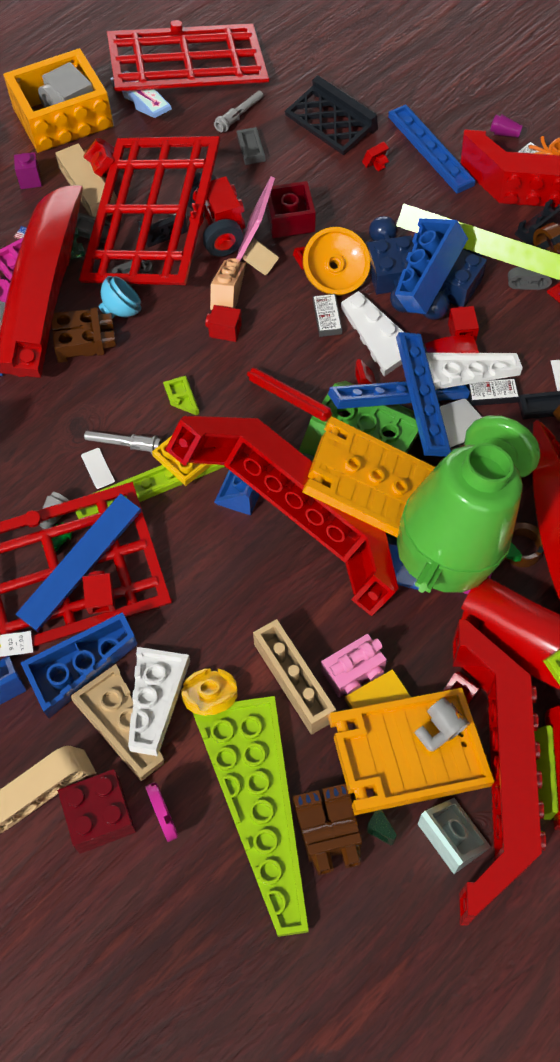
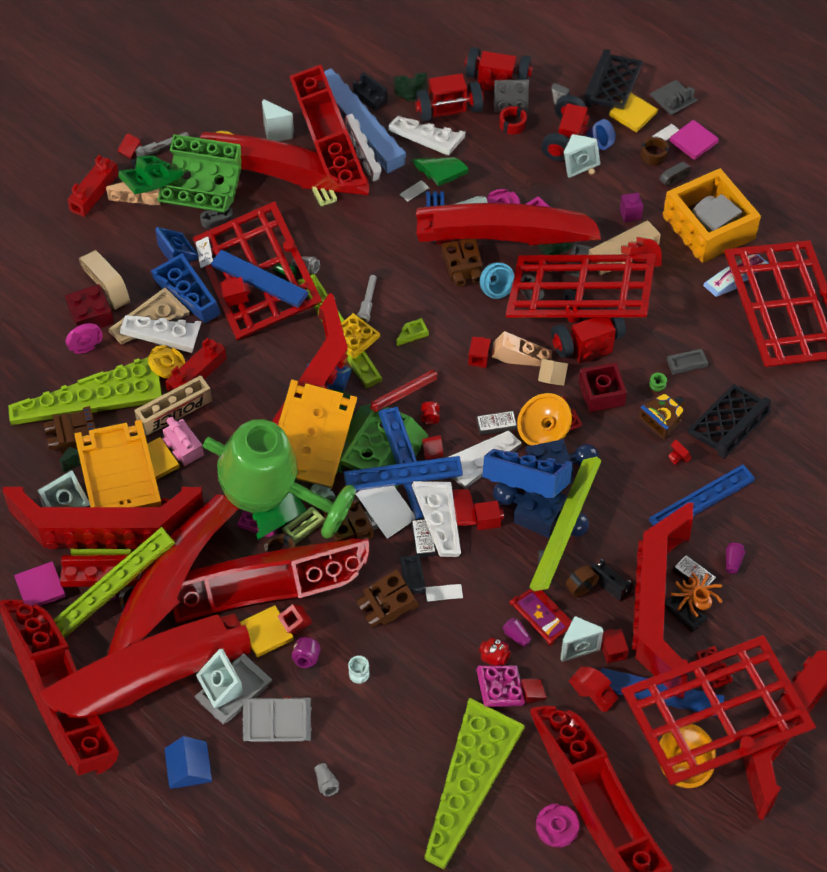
camera: 85 degrees right, 5 degrees down
(97, 468) = (346, 288): white sticker -> none
(223, 122) = (720, 344): light grey pin -> none
(227, 650) = (201, 363): none -> red brick
(255, 218) = (578, 357): bright pink piece -> none
(278, 169) = (658, 387): none -> bright green bush
(314, 375) = (430, 413): none -> red wheel
(326, 165) = (662, 414): none -> reddish brown torso
(447, 720) = (131, 485): light grey piece -> none

